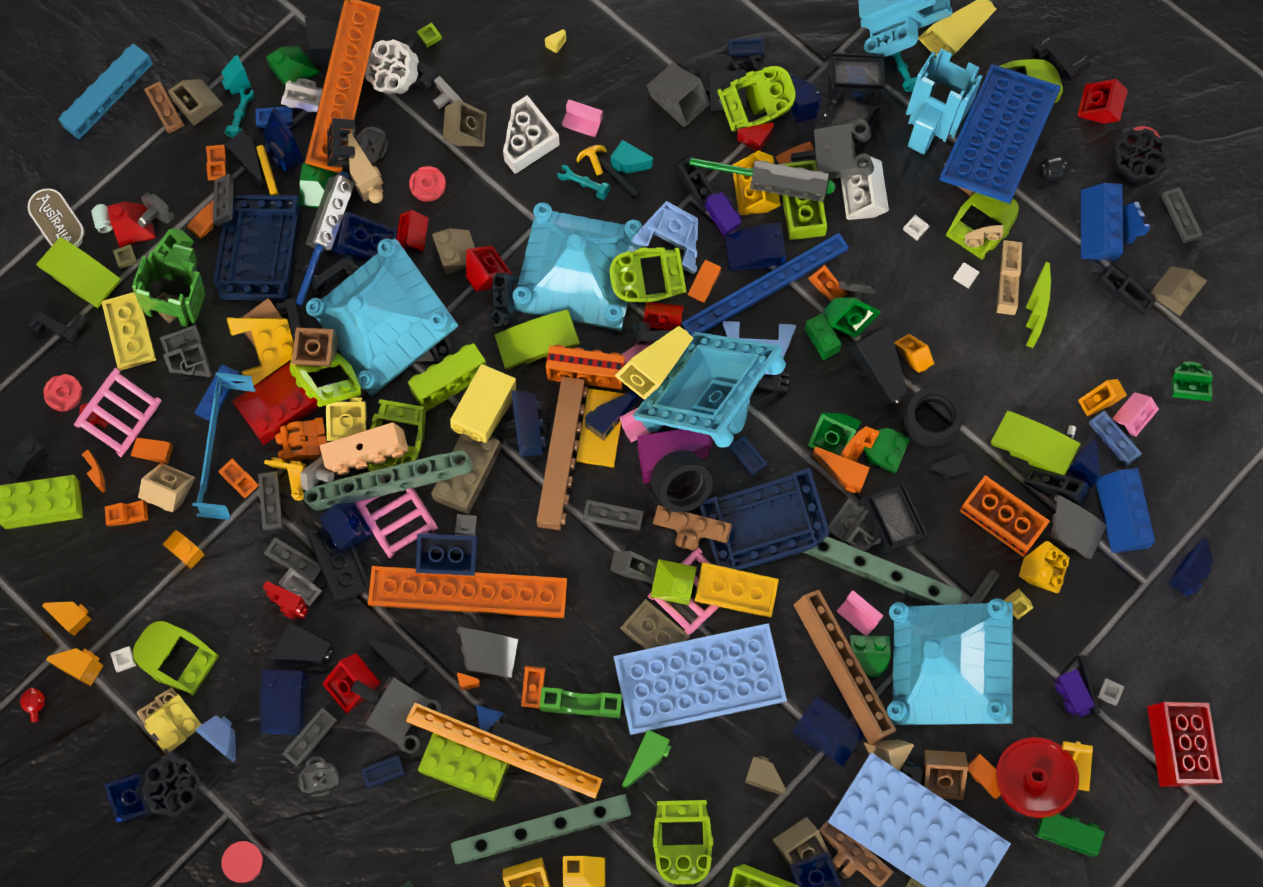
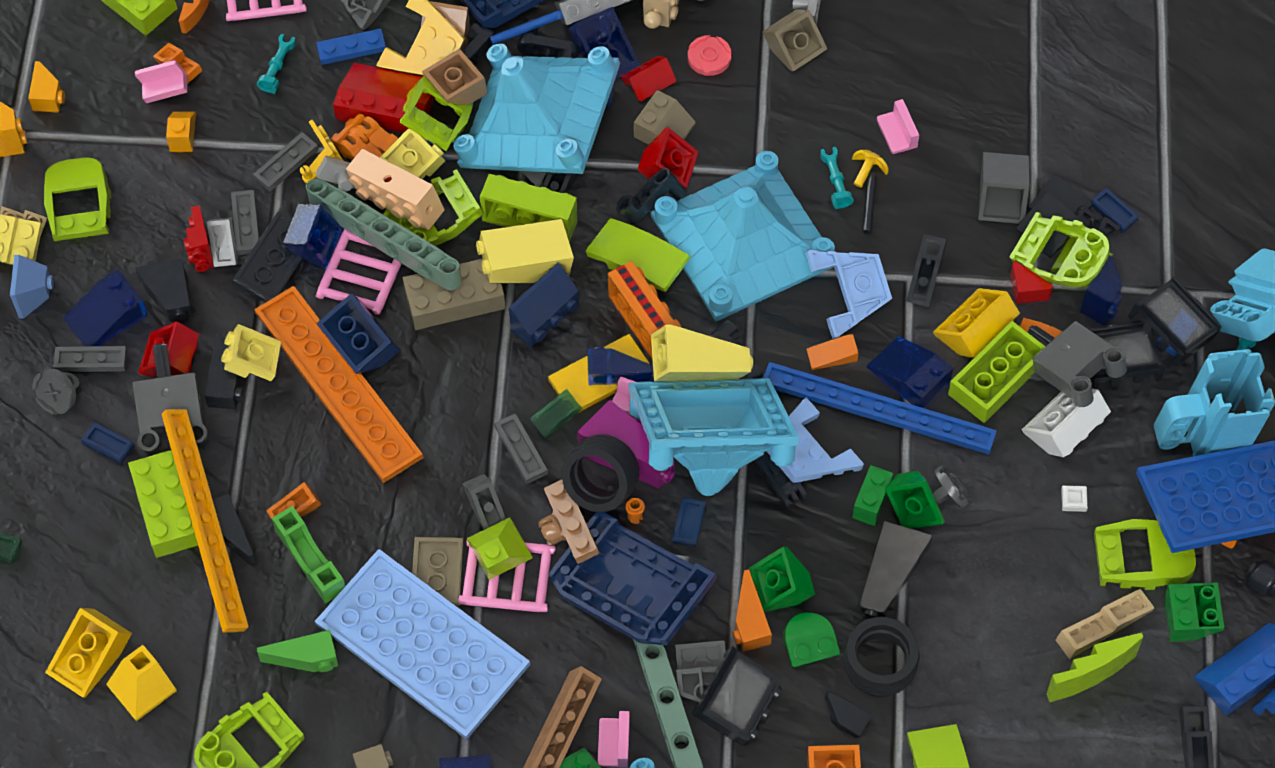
camera: 50 degrees right, 10 degrees down
(123, 659) = (41, 161): white tile -> none
(136, 534) = (162, 81): none -> bright pink panel
(152, 450) = (253, 39): orange slope -> none
(165, 487) = (226, 72): tan slope -> none
(196, 466) = (268, 82): none -> teal piece
(214, 510) = (234, 108): dark azure piece -> none
(238, 478) = (285, 121): orange slope -> none
(404, 630) = (251, 353): none -> light yellow plate
(466, 524) = (403, 334): light grey plate -> none
(467, 682) = (248, 446): orange slope -> none
(487, 717) = (234, 489): blue piece -> none
(488, 652) = (292, 441): dark grey slope -> none
(527, 135) = (831, 94): white brick -> none
(540, 829) = (159, 613): sand green beam -> none
(555, 41) = (956, 48): light yellow slope -> none
(560, 455) = (542, 358): medium nougat brick -> none
(608, 475) = (556, 413): none -> clear green plate
(628, 280) = (769, 280): lime slope -> none
(630, 159) = (895, 196): teal slope -> none
(663, 315) = (763, 342): red panel -> none
(718, 480) = (635, 509): none -> orange pin
(722, 213) = (915, 316): dark purple brick -> none
(736, 590) = (540, 609): yellow tile -> none
(779, 178) = (991, 328): piece -> none
(827, 284) = (934, 455): orange slope -> none
(862, 439) = (788, 606): orange slope -> none
(914, 353) = (934, 592): light orange slope -> none
(966, 275) = (1067, 581): white tile -> none
(976, 237) = (1115, 556): tan slope -> none
(1044, 223) = (1193, 611): none -> green slope

